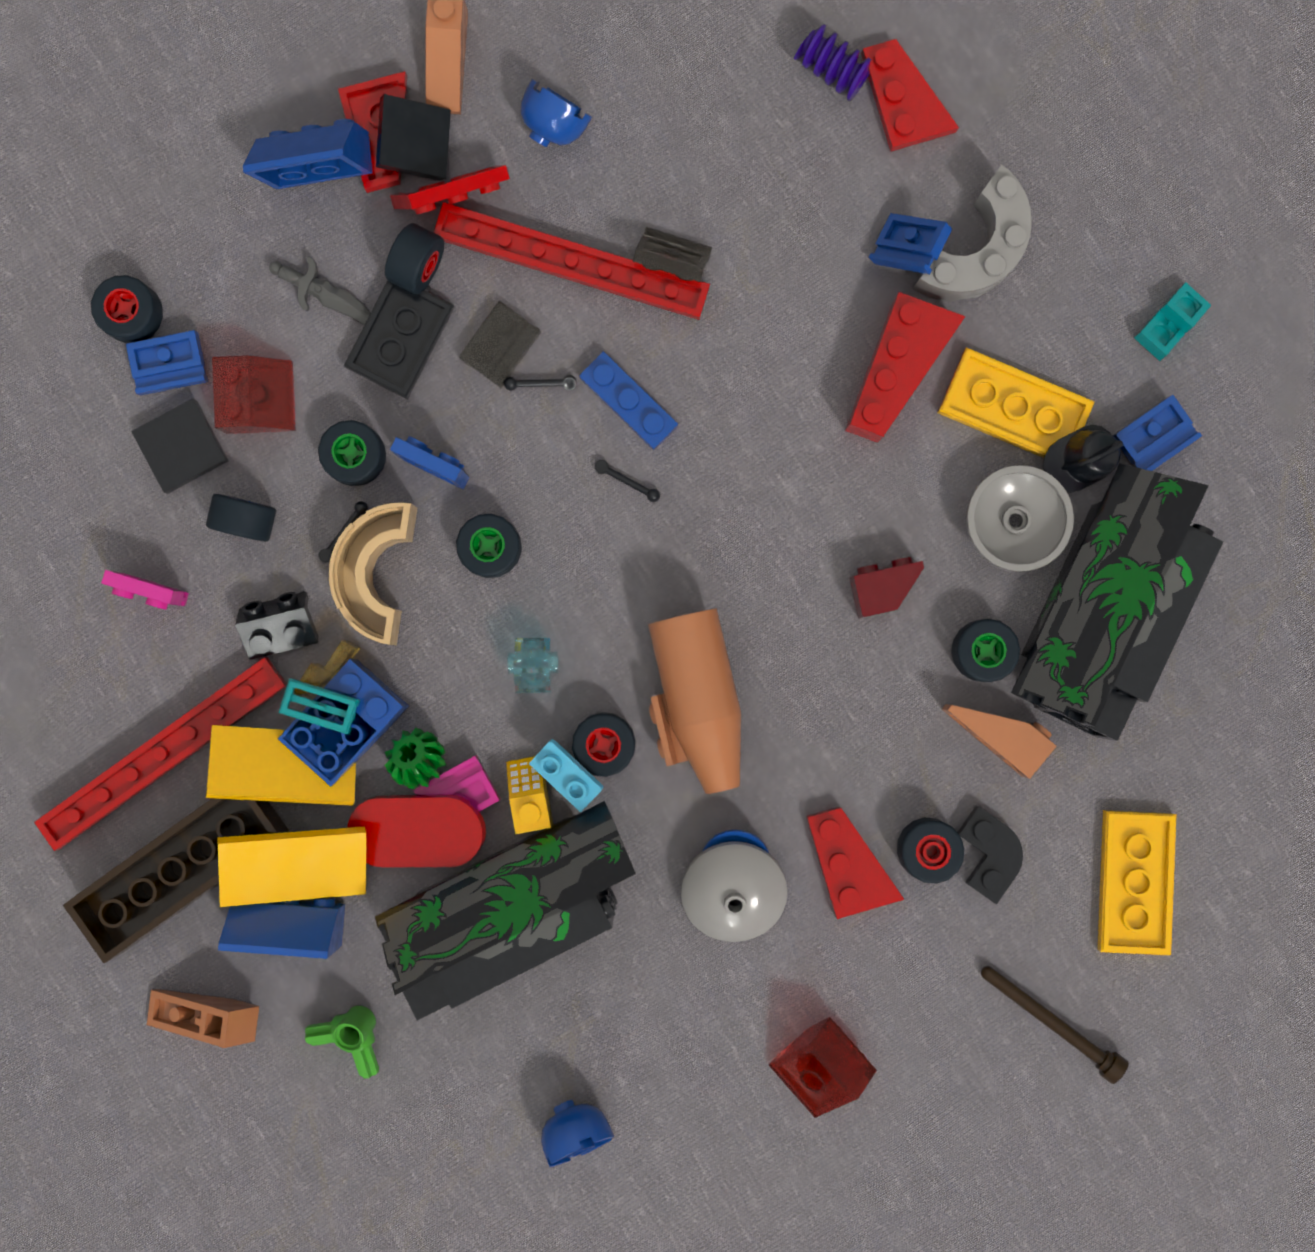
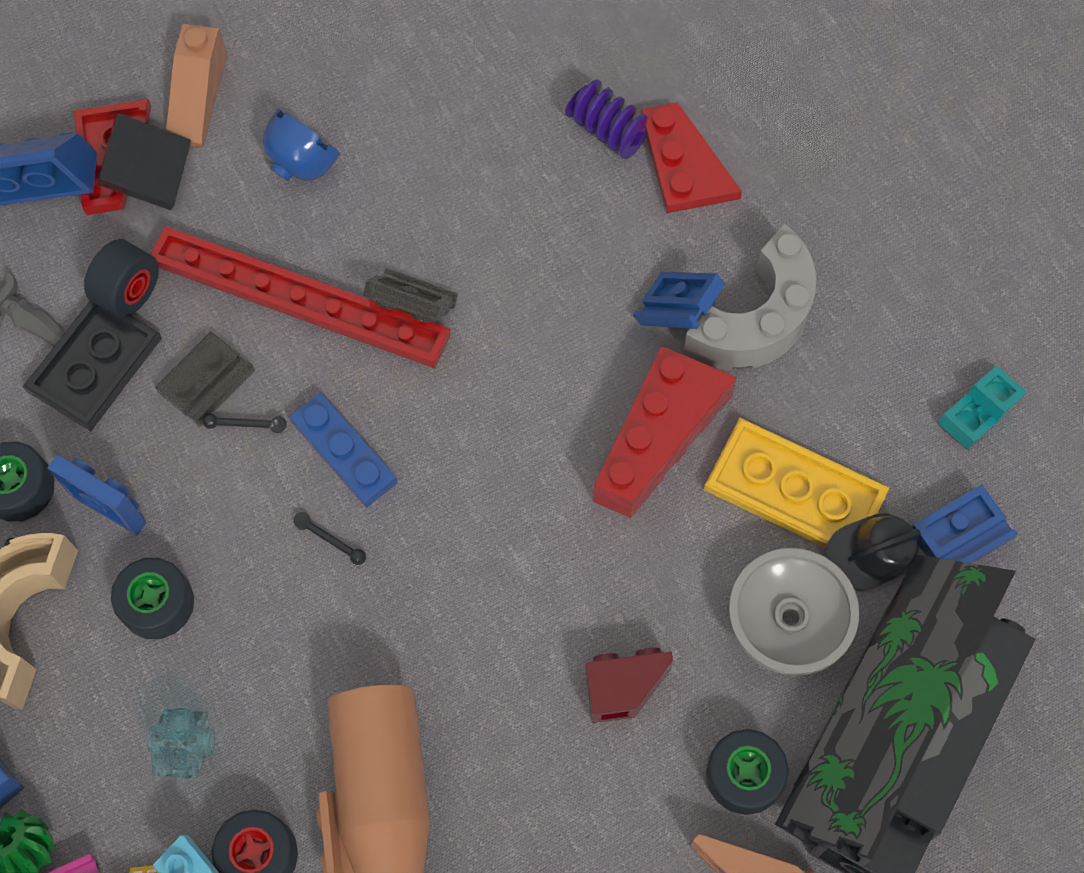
camera: 10 degrees right, 20 degrees down
(454, 191) = (175, 212): red wing -> none

